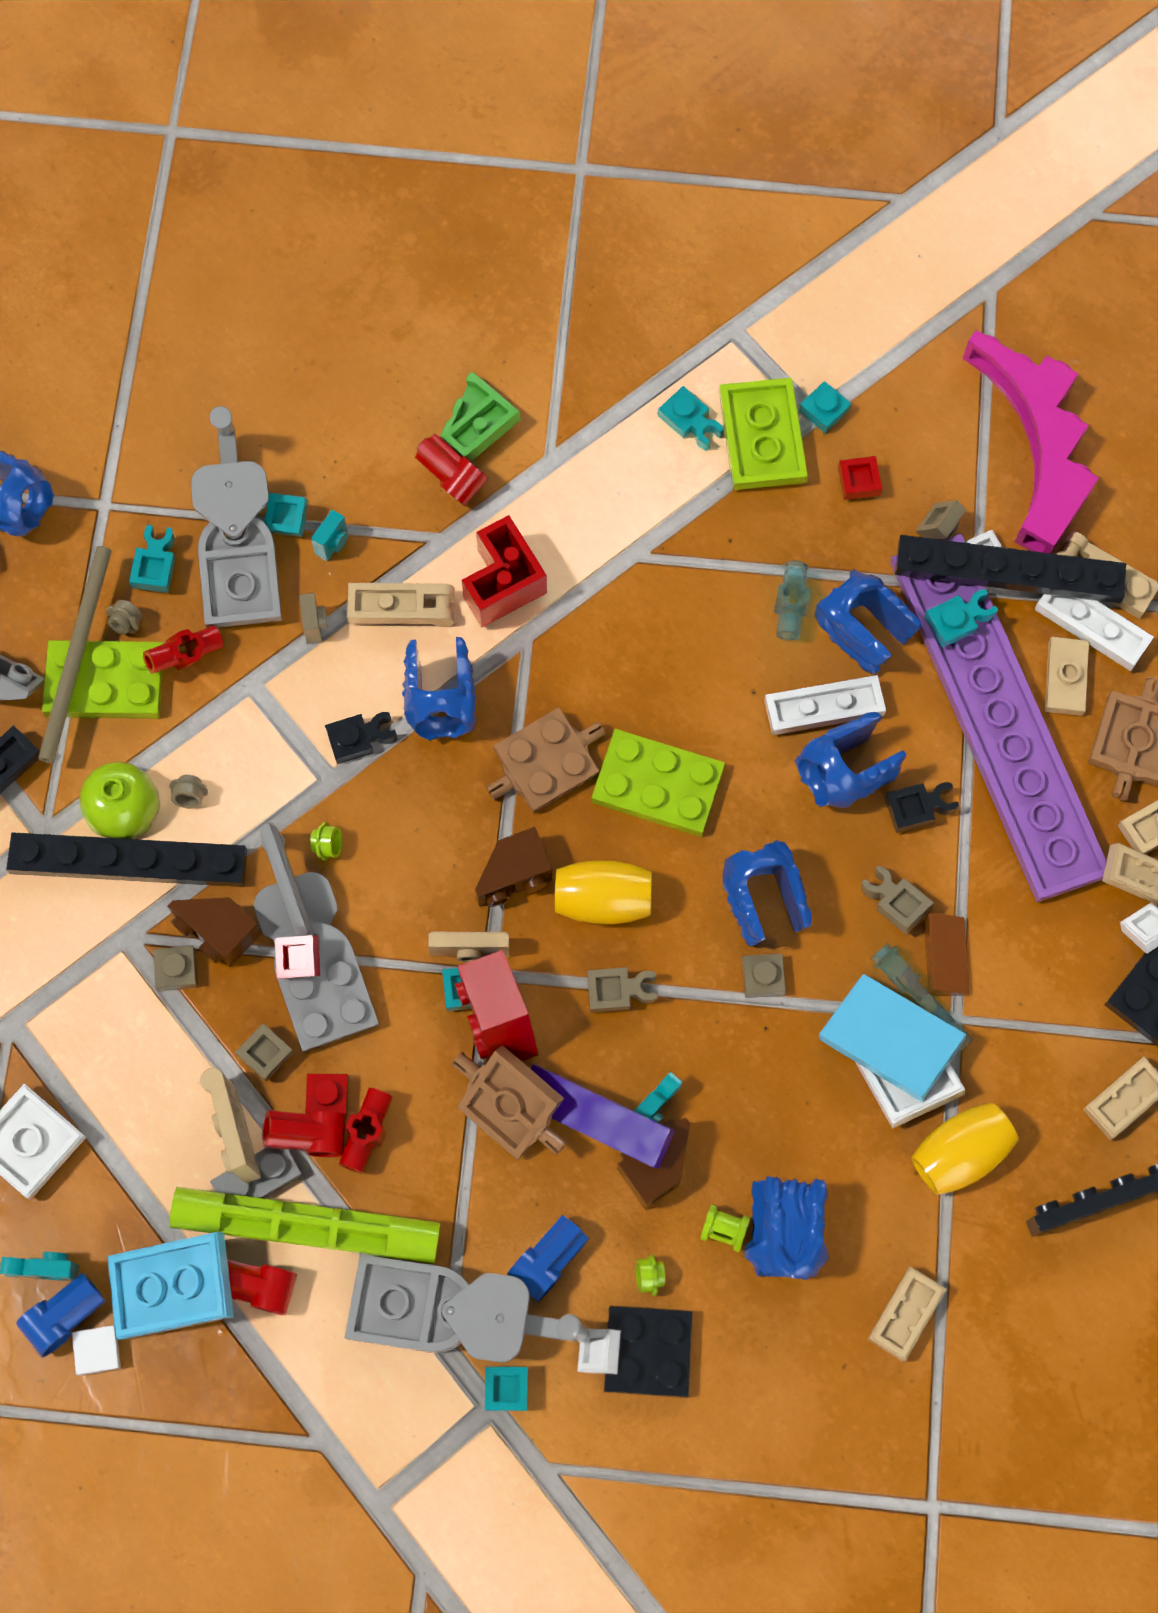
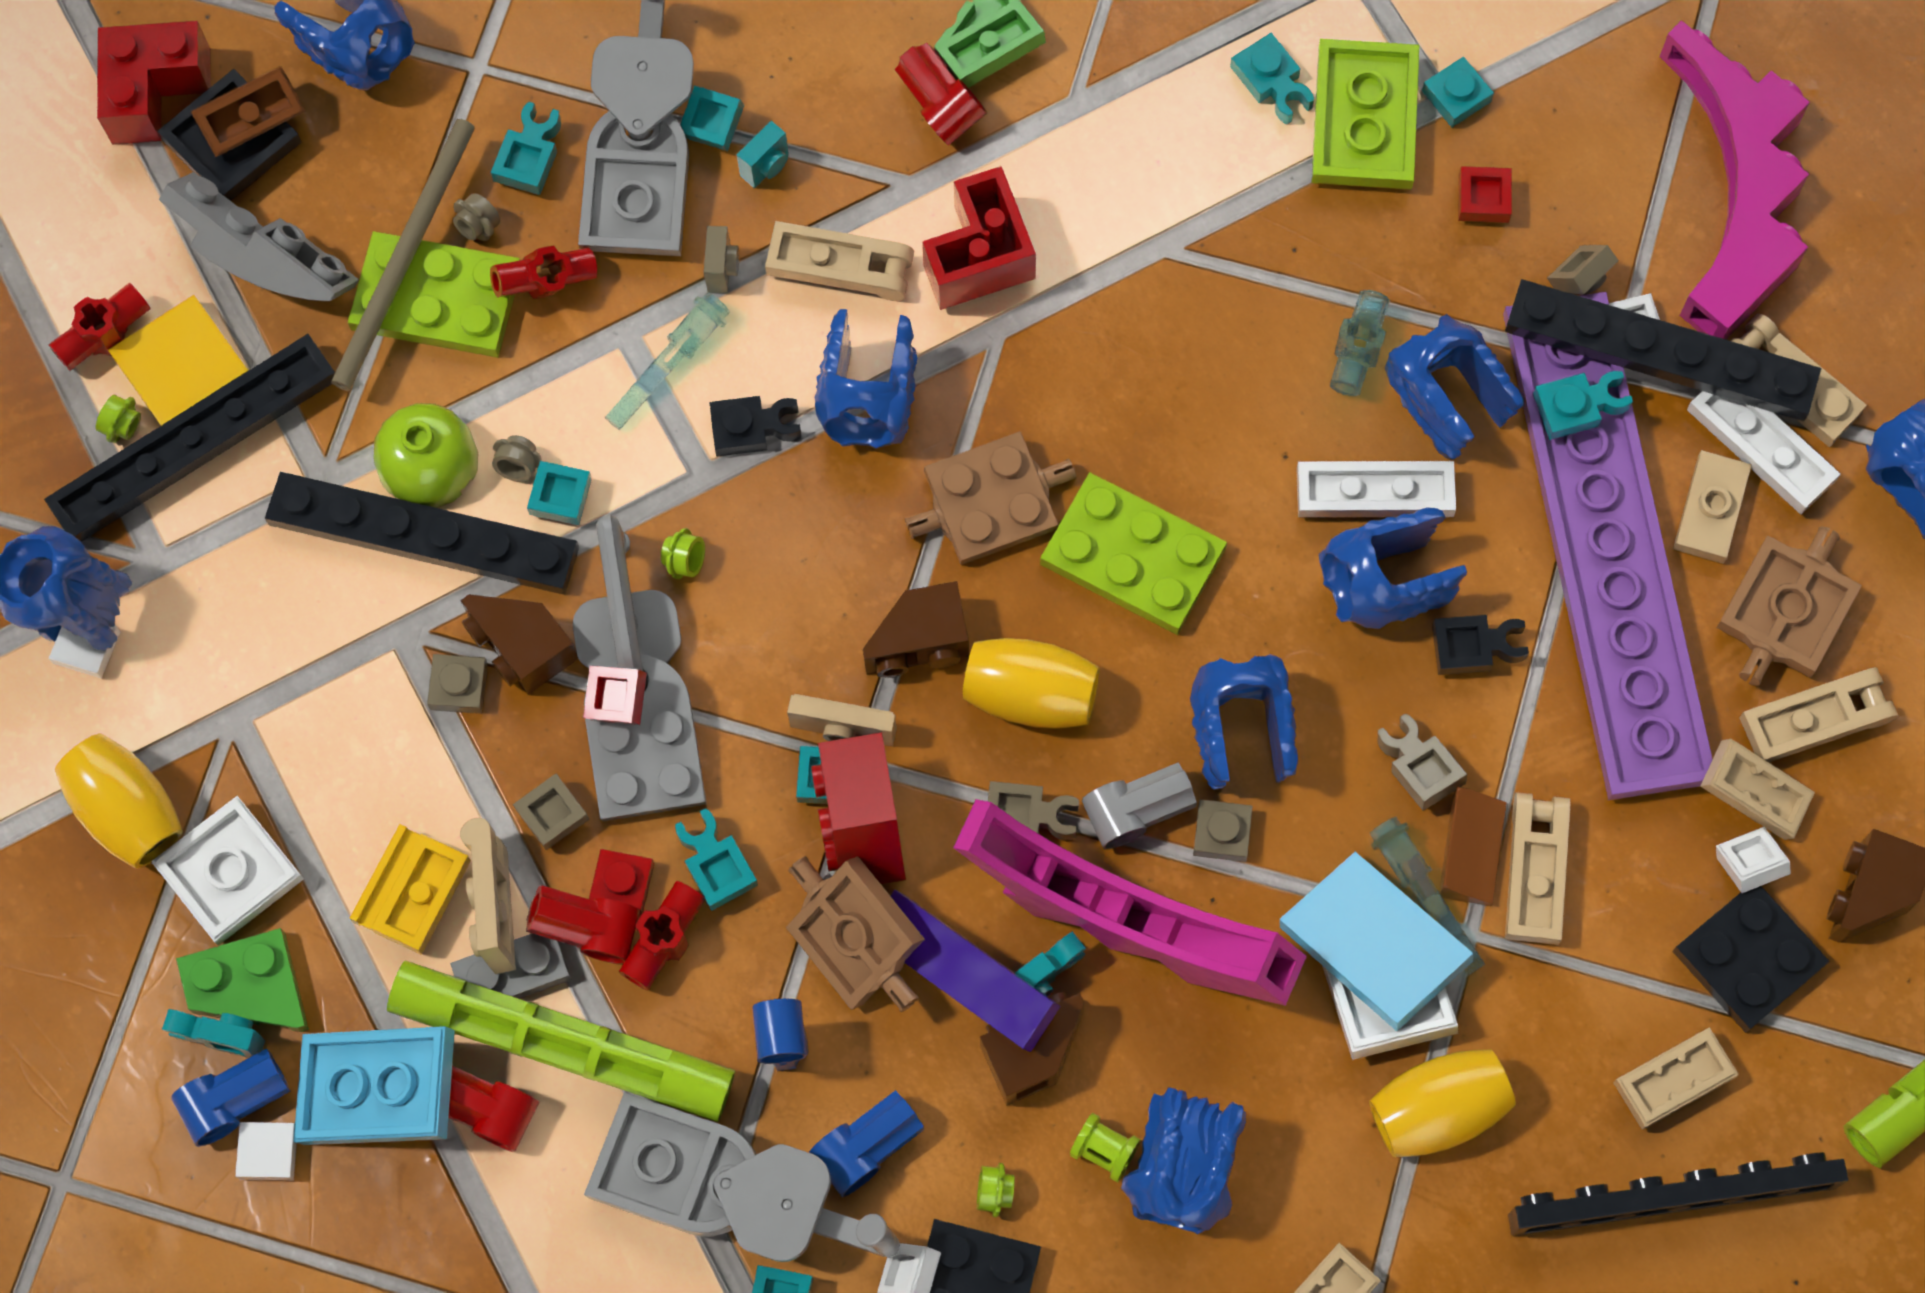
camera: 15 degrees right, 0 degrees up
(56, 1223) = (245, 980): none -> bright green wing
(169, 1130) = (410, 889): none -> yellow plate
(225, 812) = (559, 493): none -> teal plate
(306, 667) = (700, 323): none -> clear light blue pin
(397, 1071) = (718, 866): none -> teal plate
(470, 1188) = (780, 1033): none -> blue piece
(690, 973) = (1125, 810): none -> light grey piece
(711, 1053) = (1125, 915): none -> dark pink arch
(997, 963) = (1537, 870): none -> tan plate

